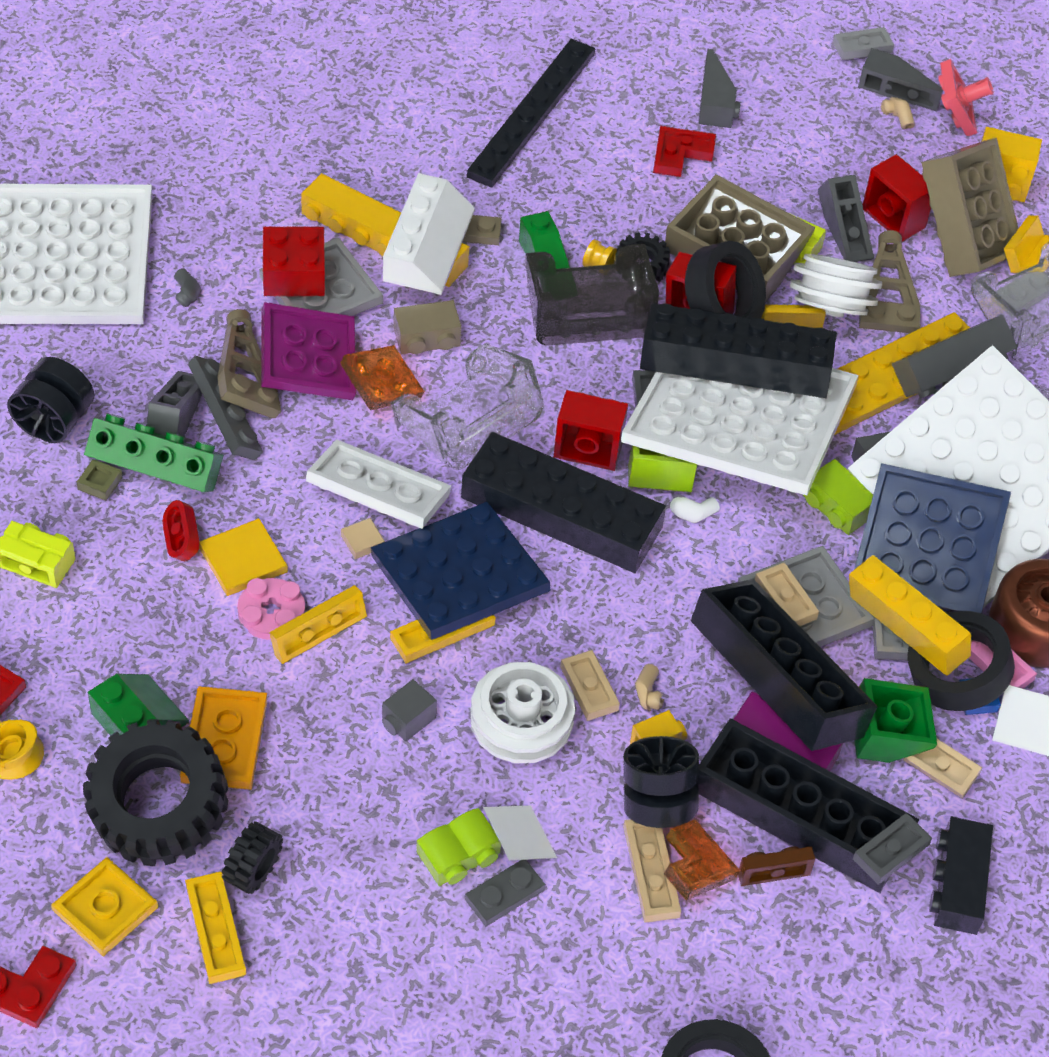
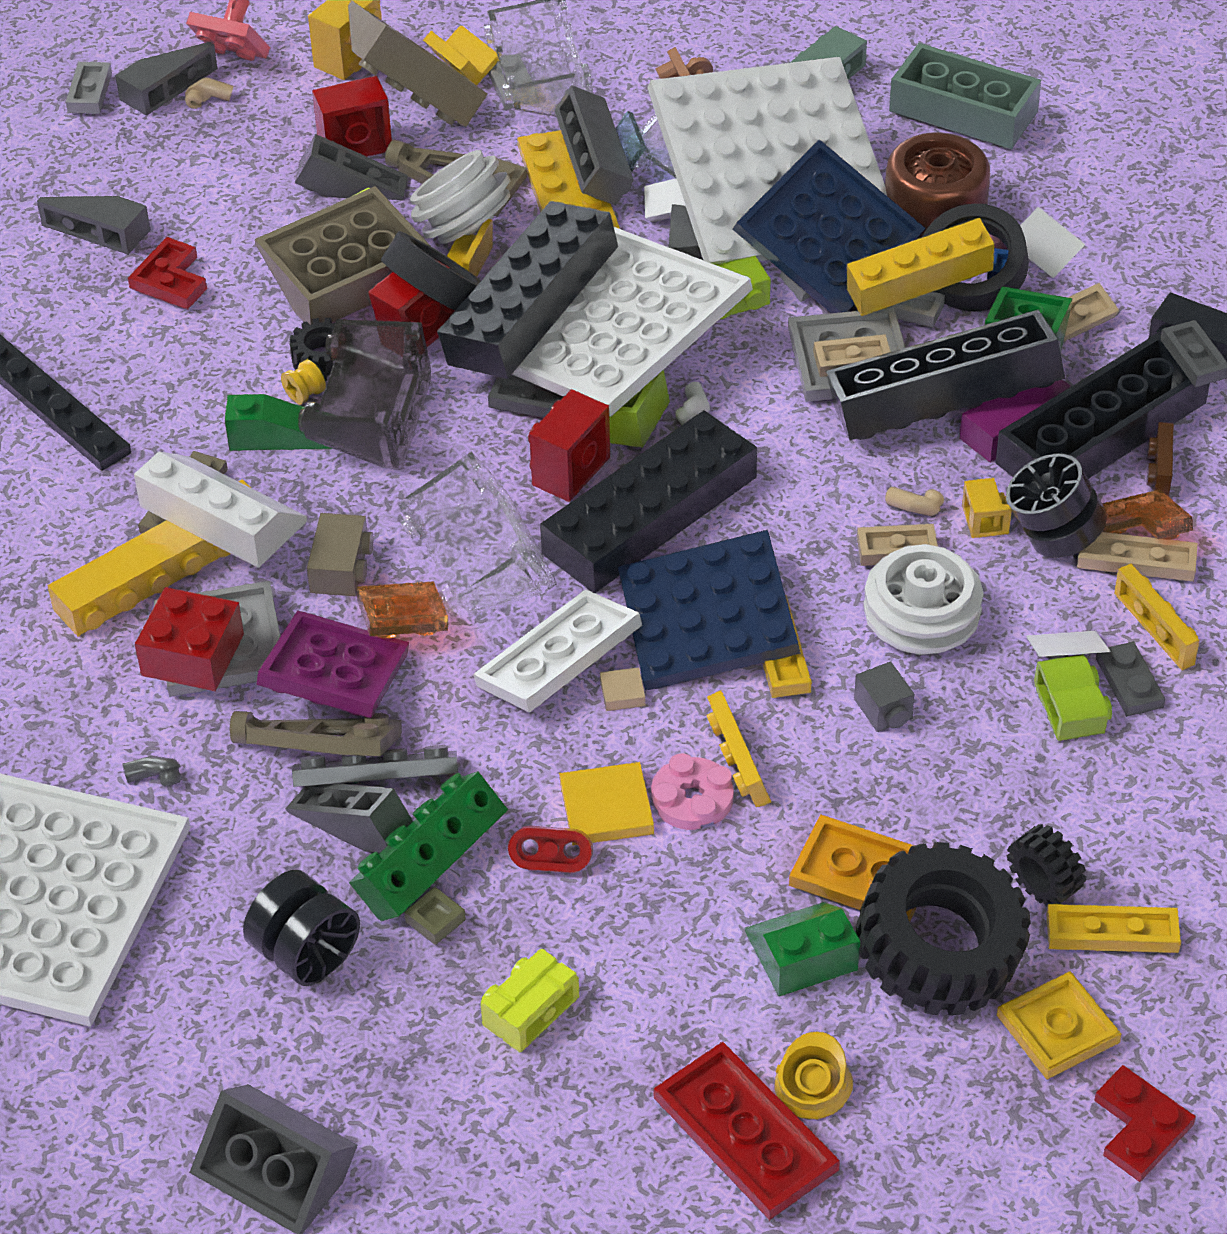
camera: 65 degrees left, 5 degrees down
(578, 896) = (1157, 616): none -> yellow plate

